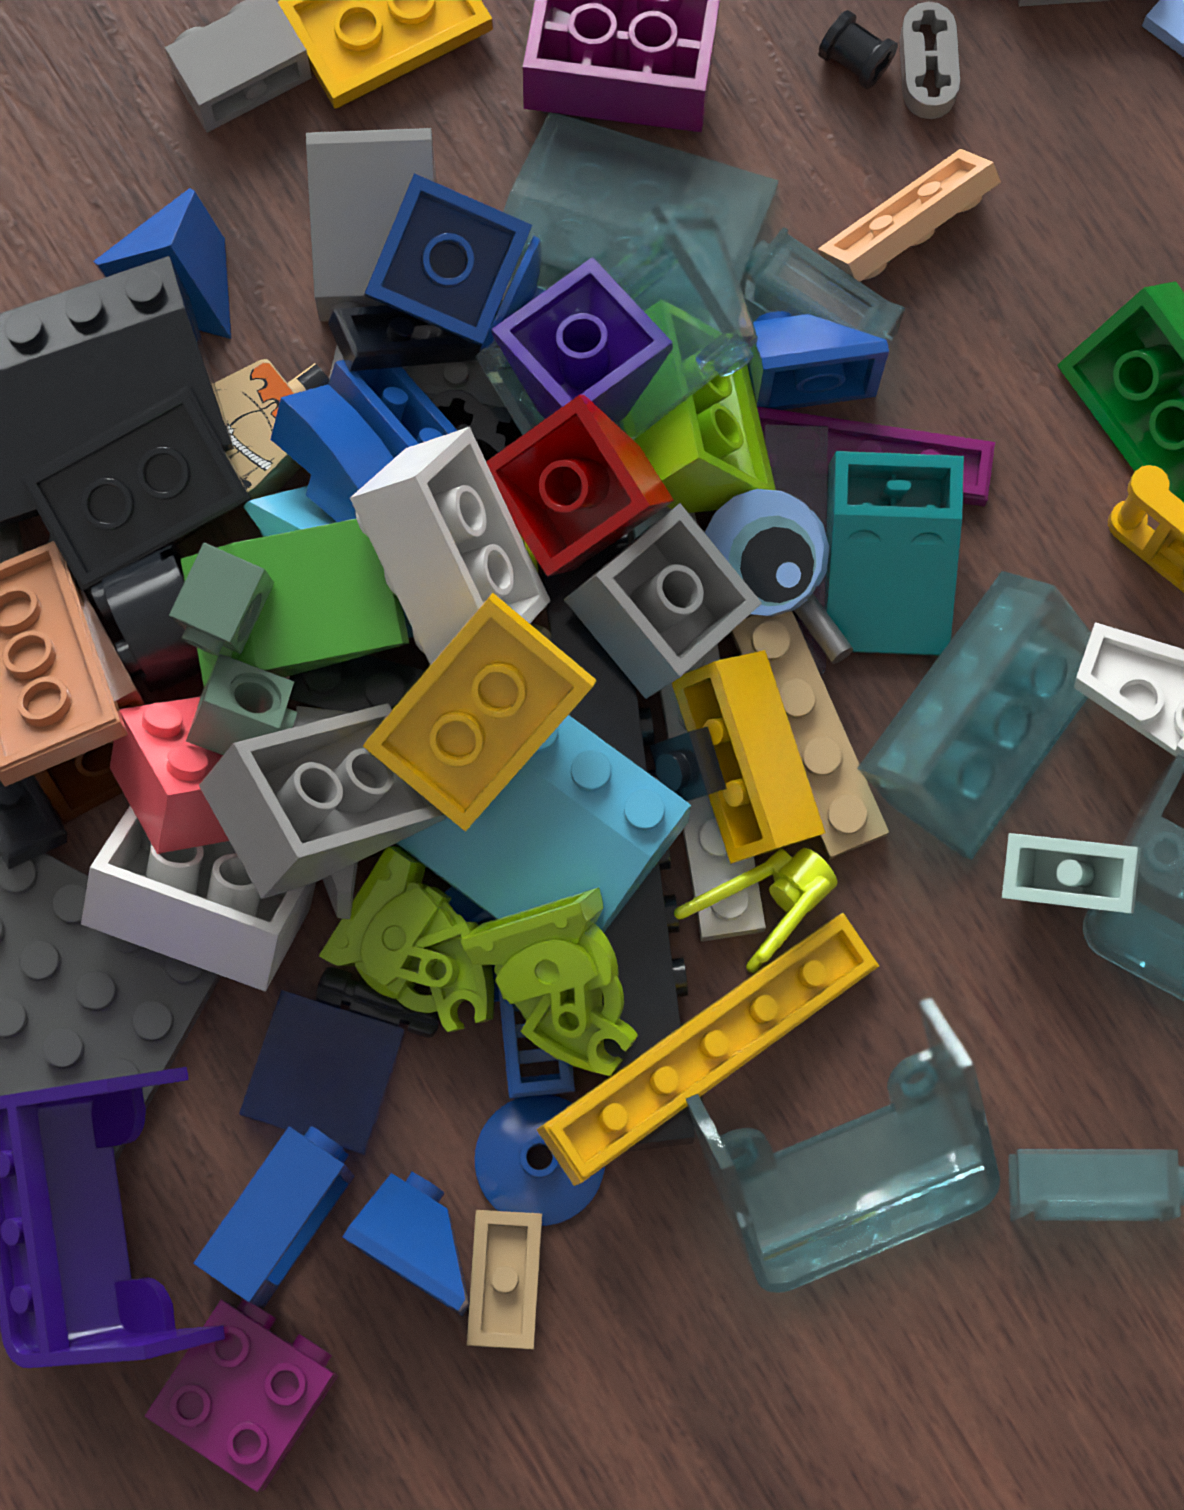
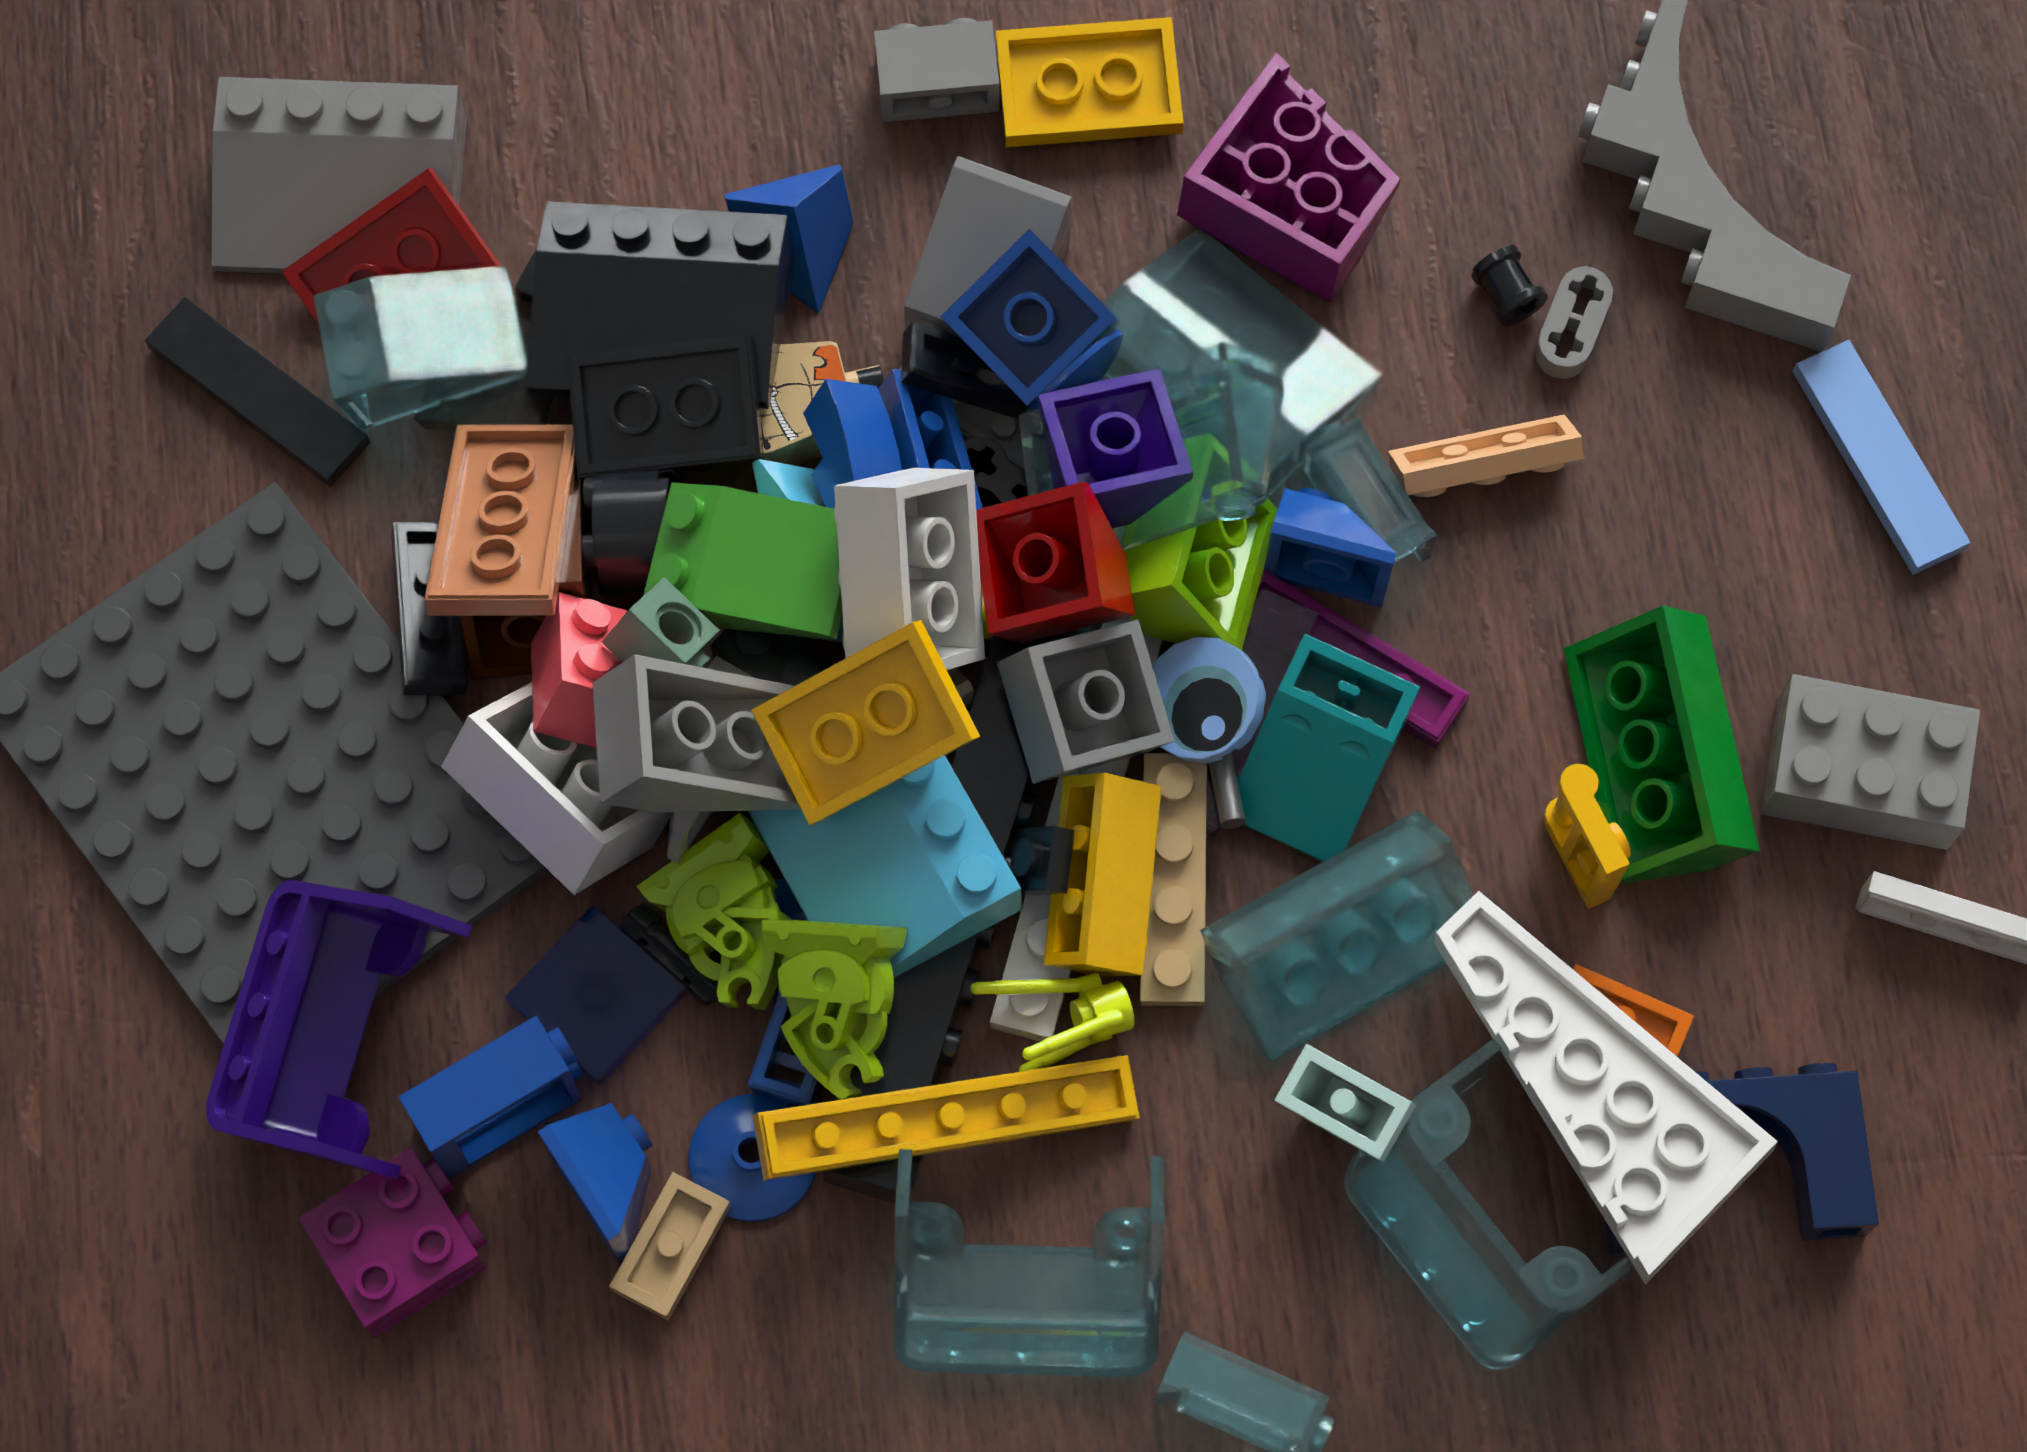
camera: 25 degrees right, 5 degrees down
(220, 600) = (684, 530): sand green brick -> none

